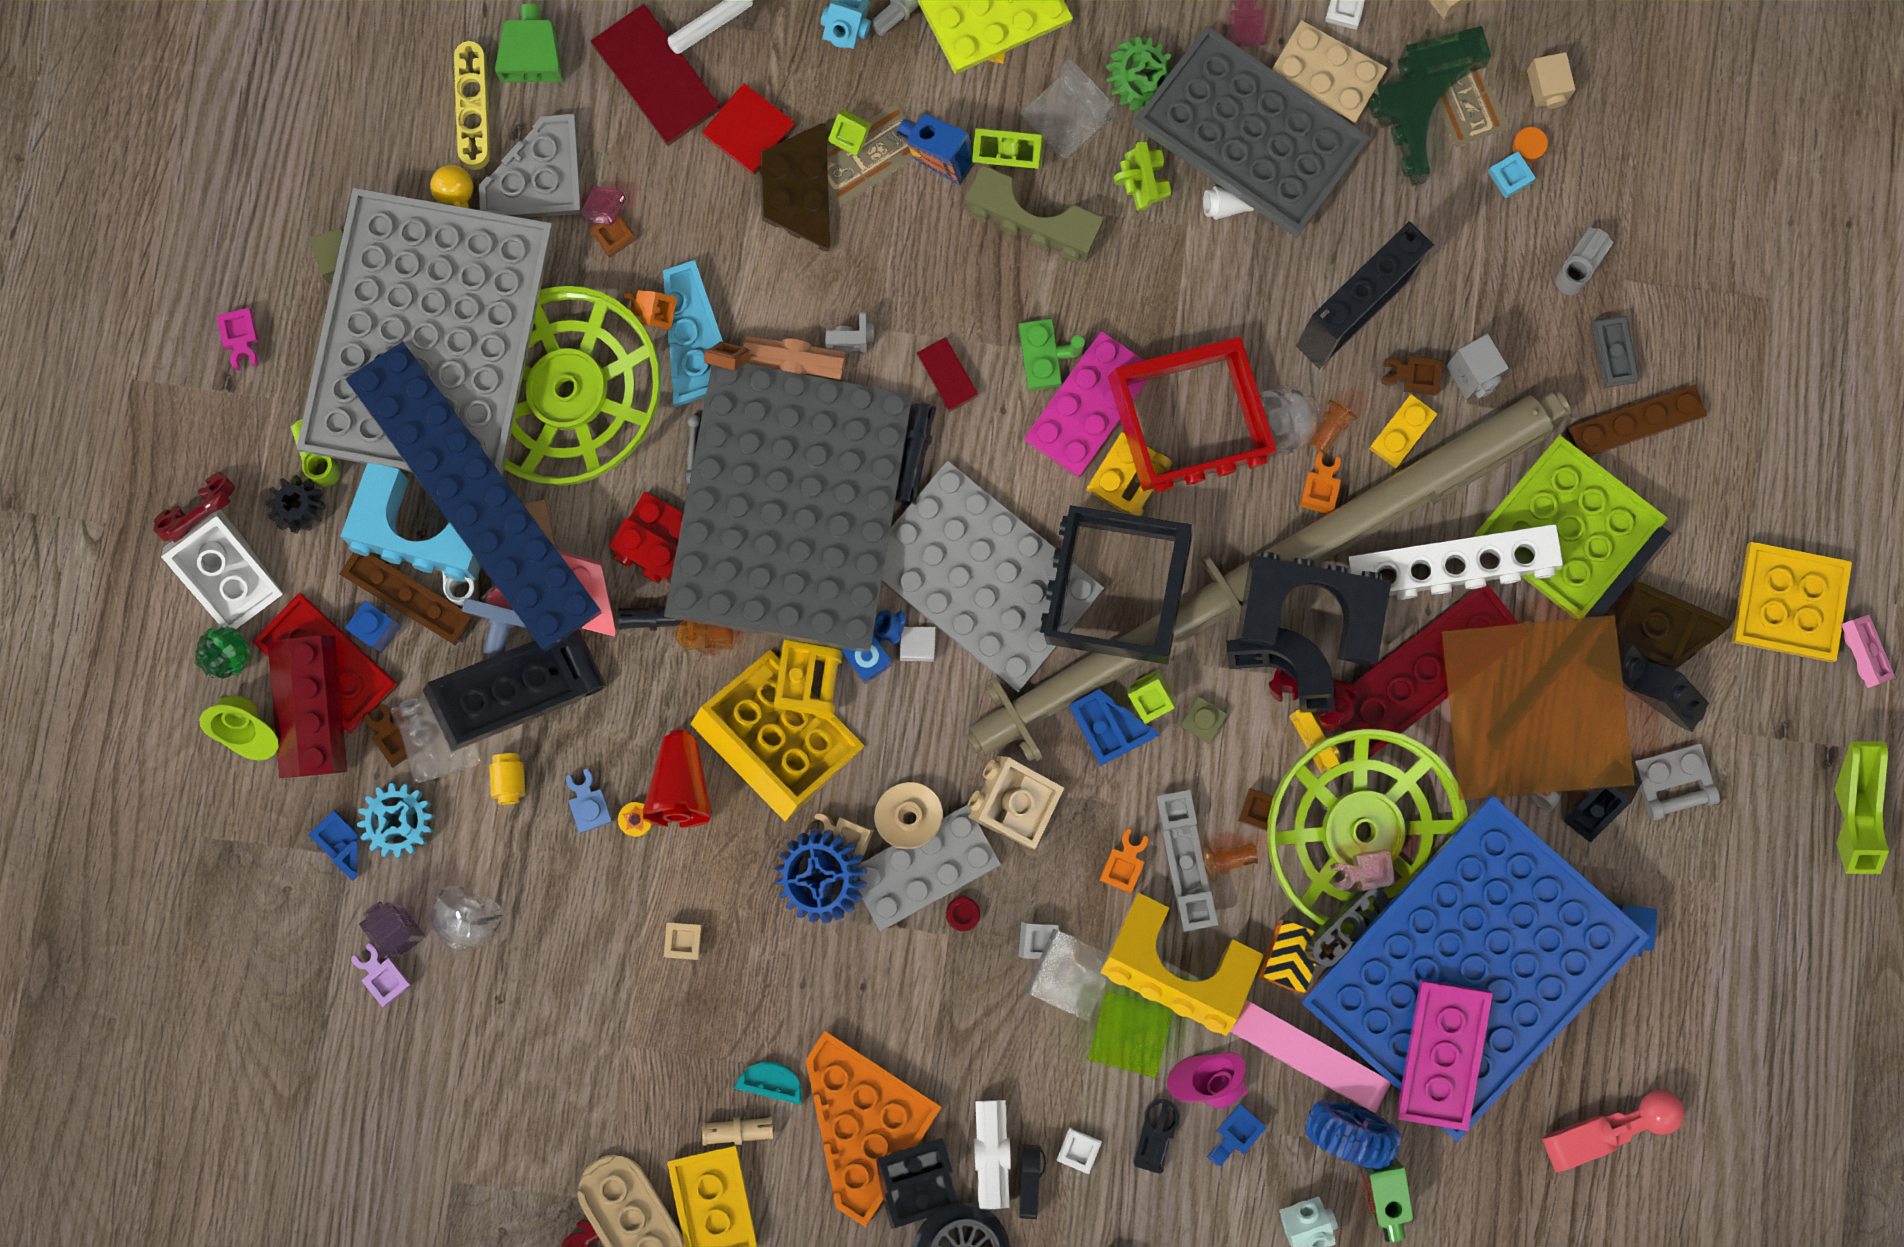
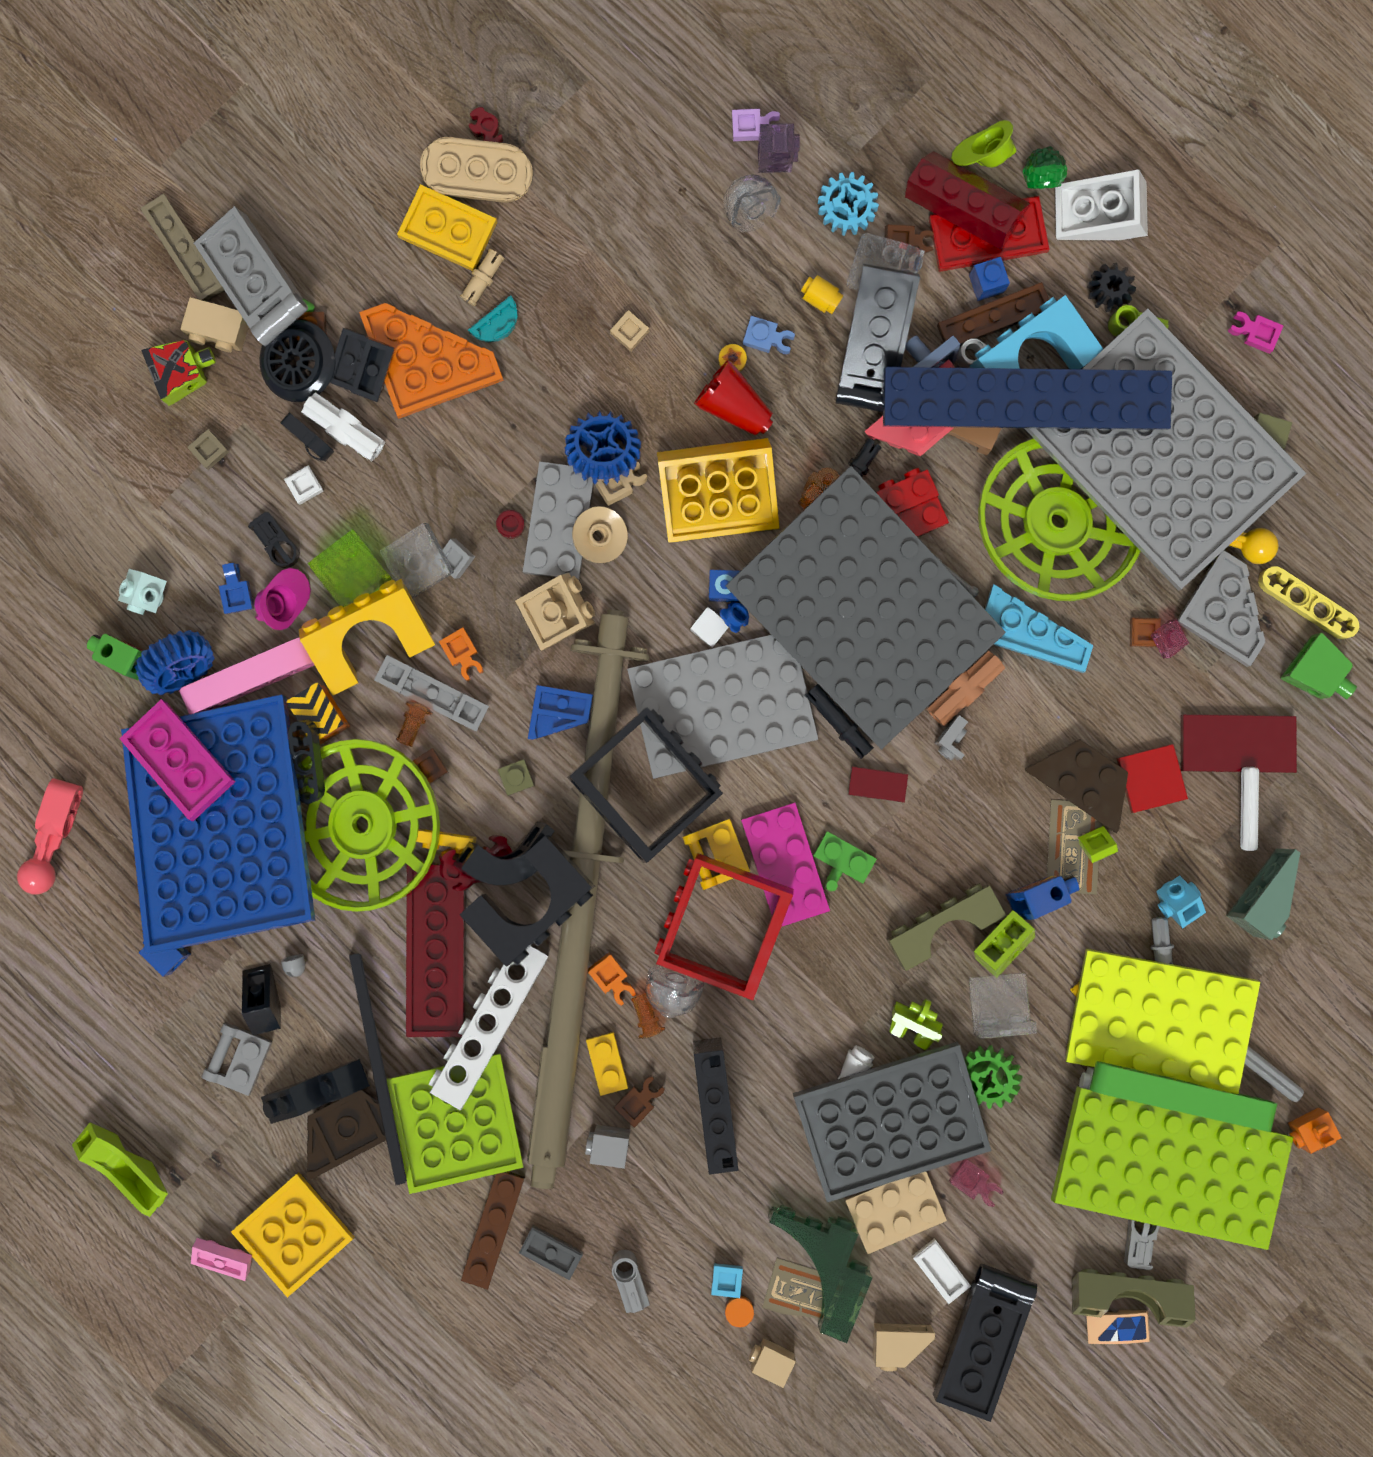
camera: 125 degrees right, 5 degrees up
(177, 523) = (1156, 200): dark red helmet -> none
(339, 842) = (861, 160): blue slope -> none
(653, 307) = (1070, 617): orange piece -> none
(727, 355) = (999, 641): dark orange tile -> none
(796, 678) = (745, 528): yellow plate -> none
(1152, 696) = (555, 752): lime brick -> none
(1369, 870) = (330, 804): clear pink plate -> none
(1537, 708) = (350, 1001): clear orange piece -> none

